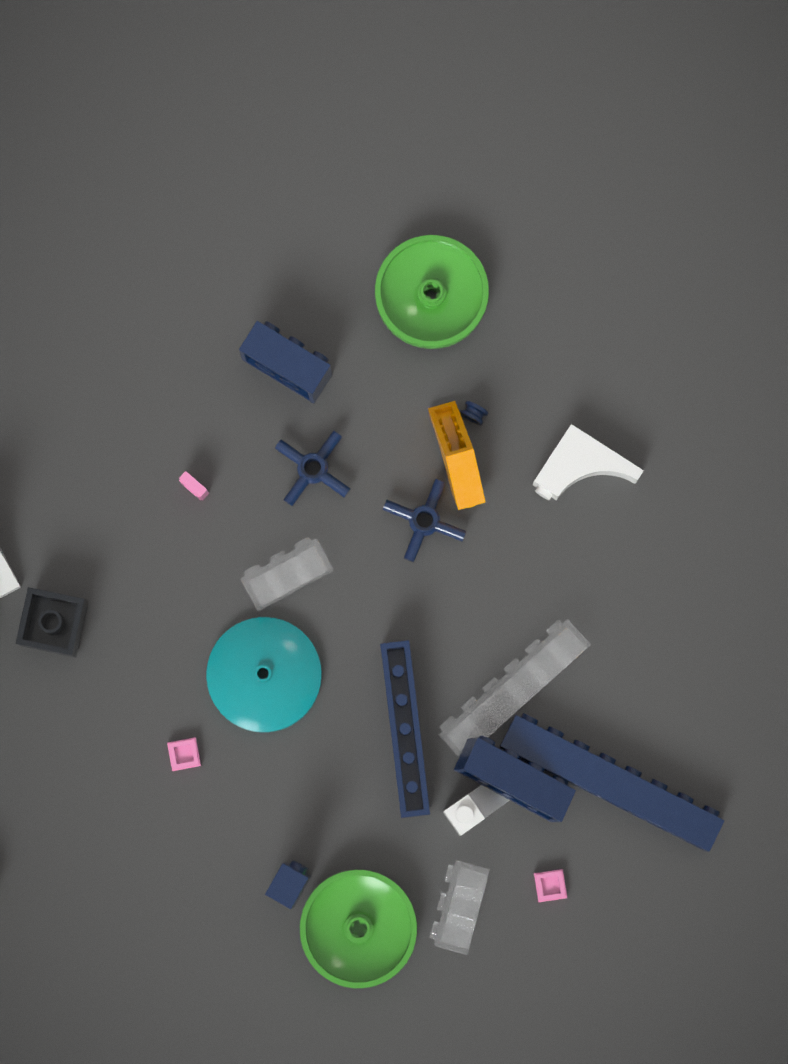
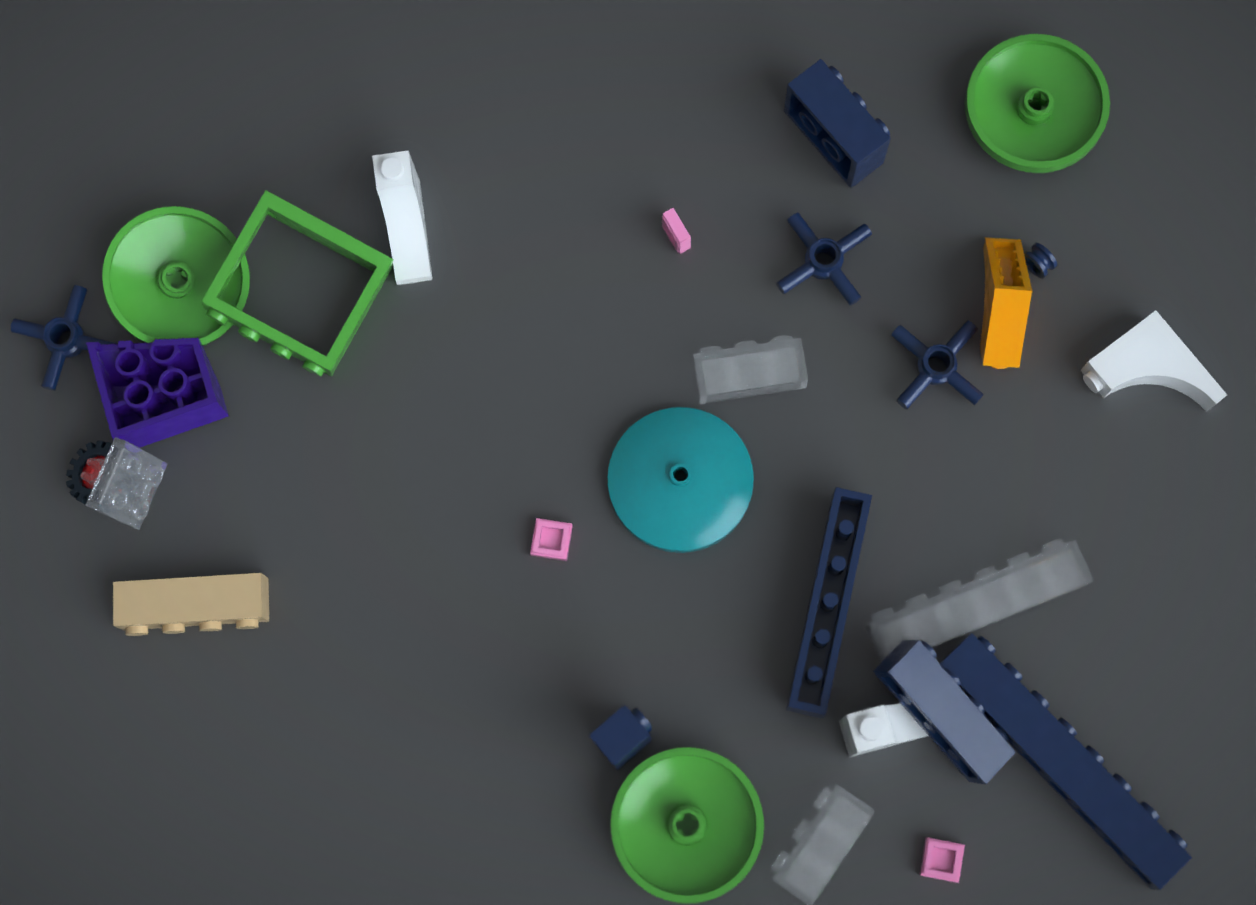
camera: 25 degrees right, 5 degrees down
(52, 622) = (452, 328): black brick -> none

